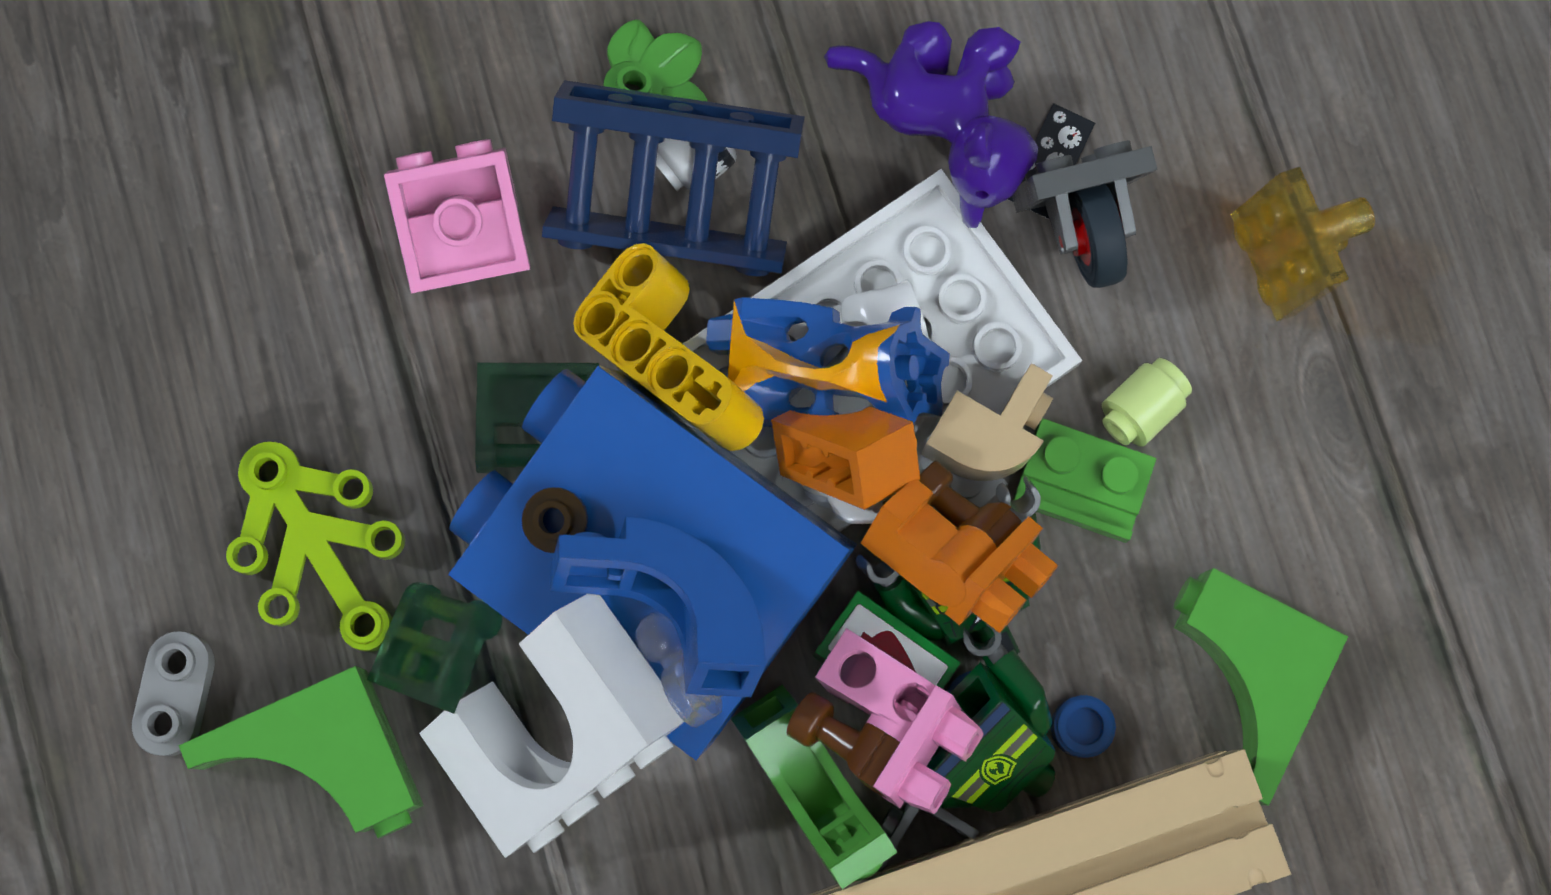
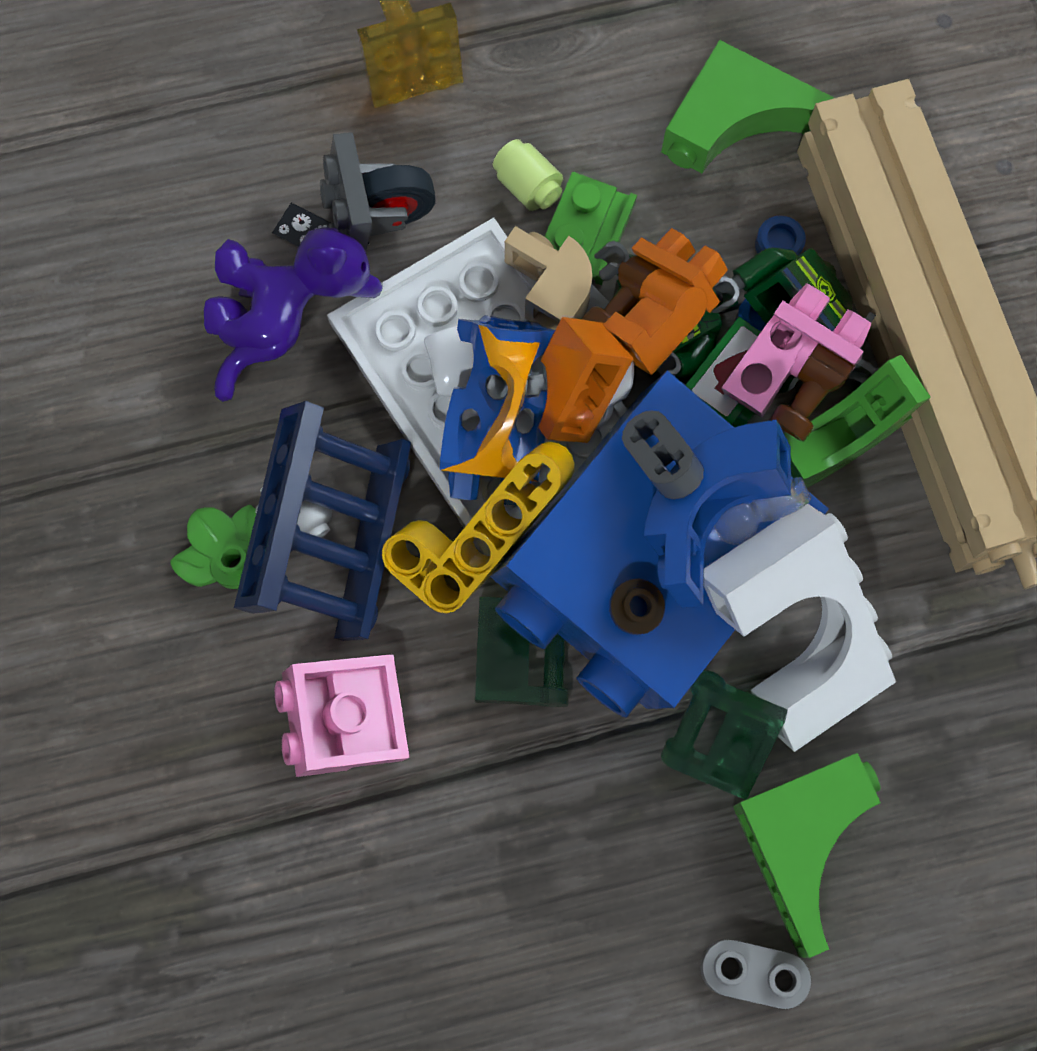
camera: 85 degrees left, 5 degrees down
(309, 537) = (620, 851): lime plant -> none
(734, 546) = (669, 448): none -> dark grey beam

